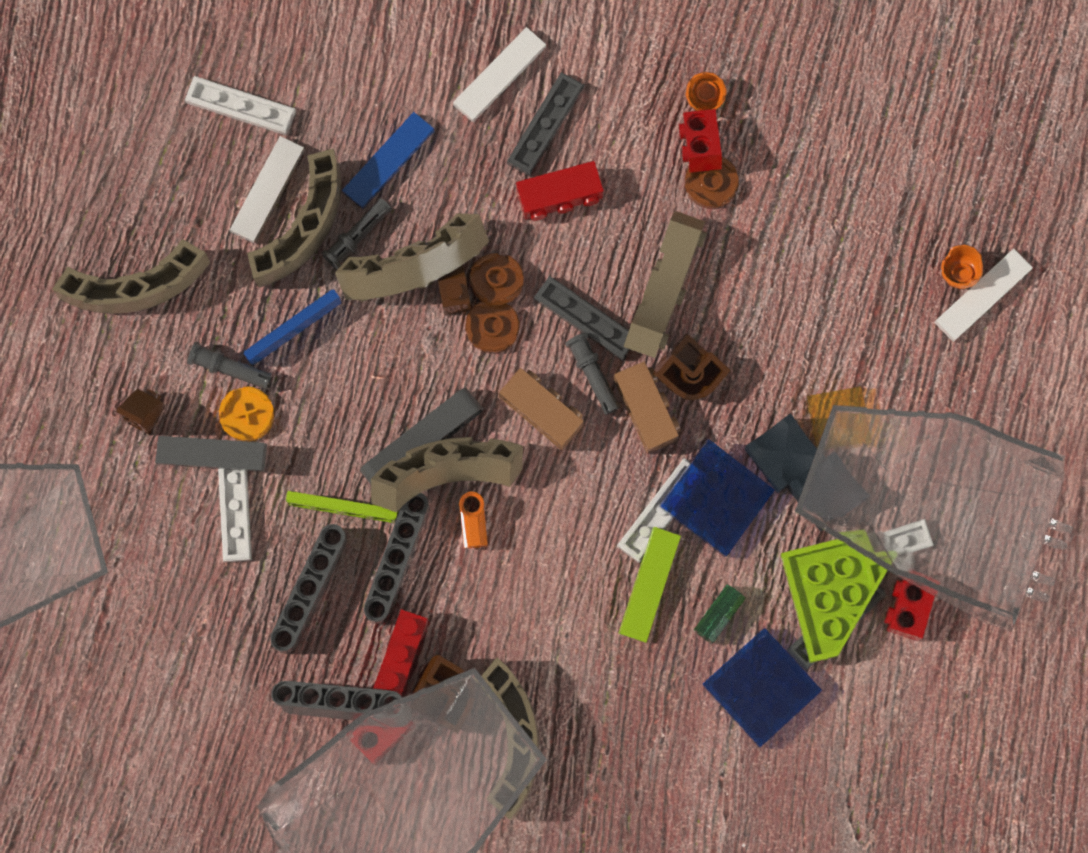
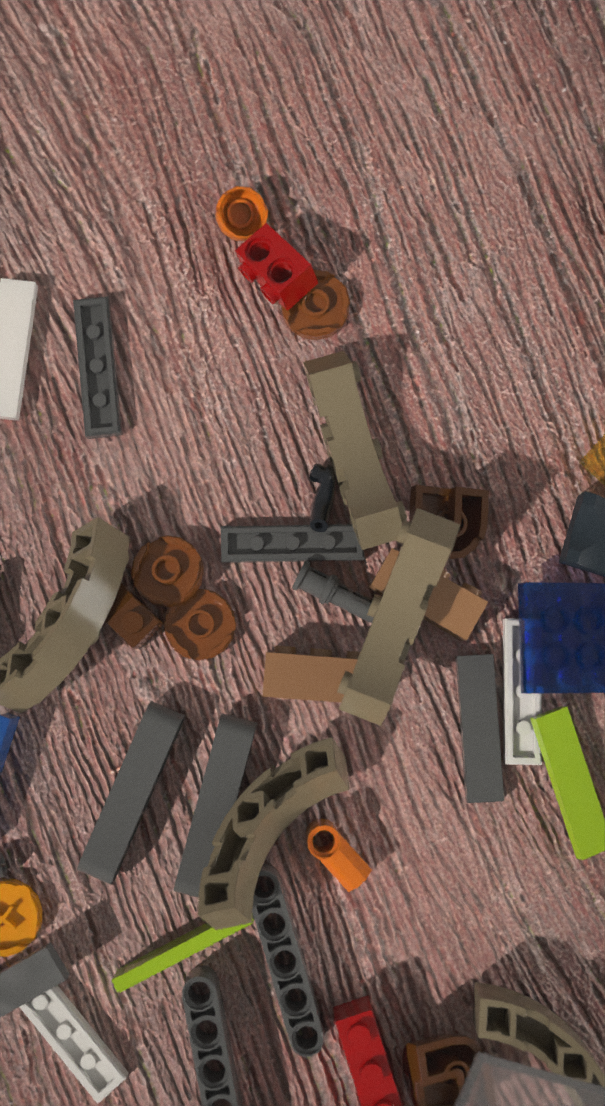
camera: 40 degrees left, 5 degrees up
(377, 394) = (131, 792): none -> dark grey beam
(559, 191) = (165, 428): red brick -> none
(615, 399) = (398, 616): none -> dark tan brick
(617, 512) = (479, 728): none -> dark grey tile
(627, 303) = (323, 498): none -> black arm

